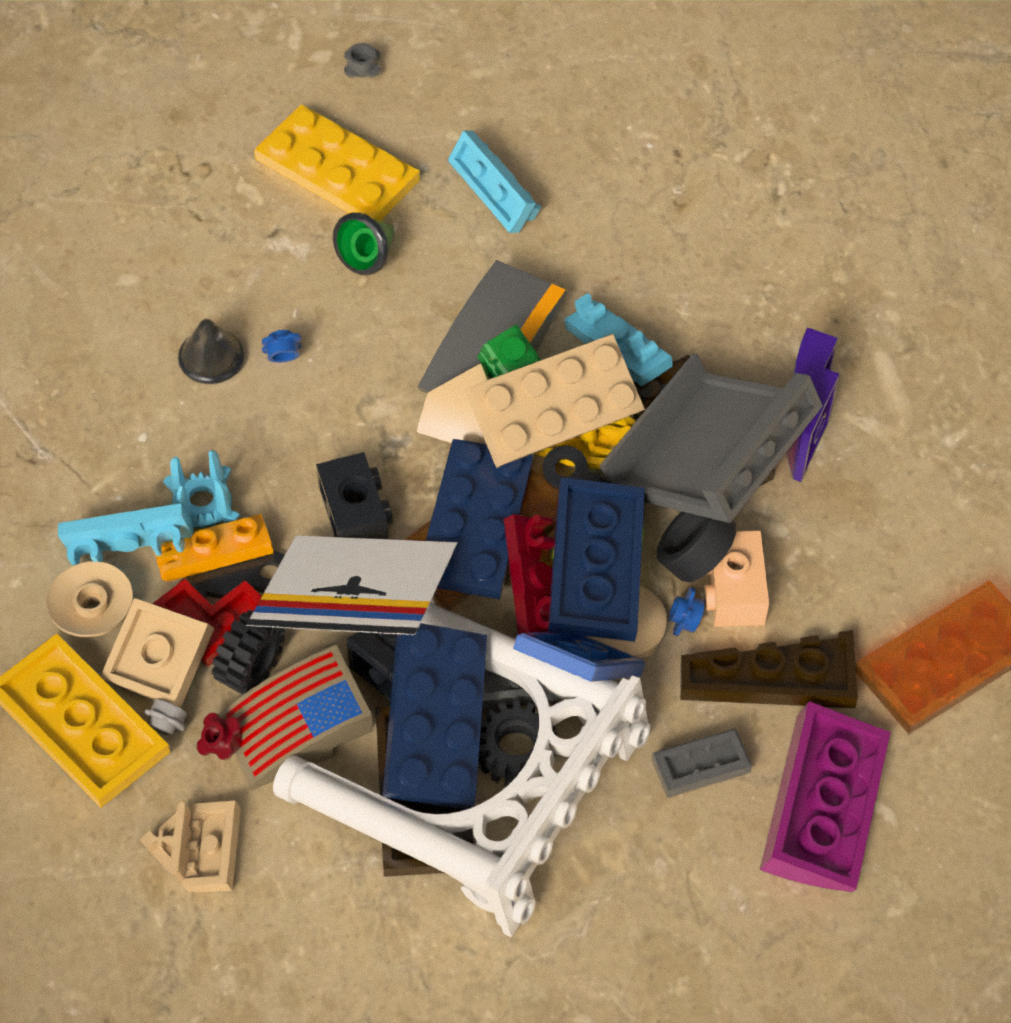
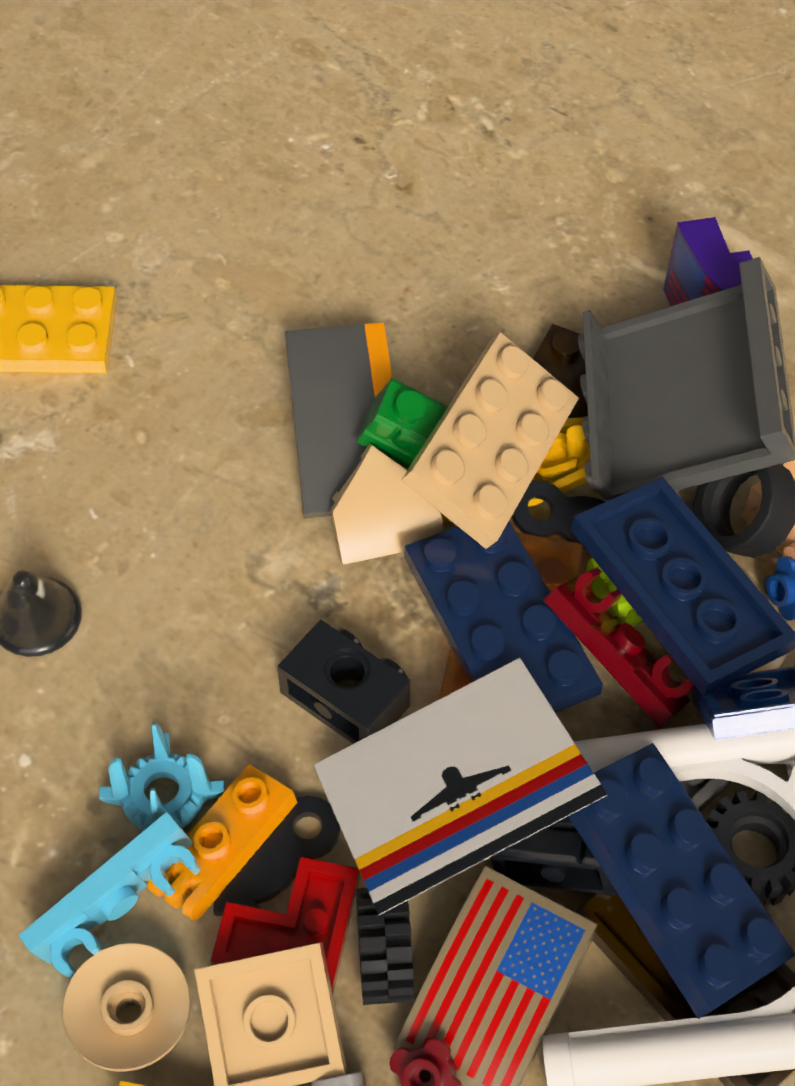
camera: 35 degrees left, 0 degrees up
(282, 346) = (116, 556): blue plate -> none
(362, 242) = (117, 393): green hat -> none
(493, 182) = (204, 257): medium azure plate -> none
(642, 356) = (459, 345): medium azure plate -> none

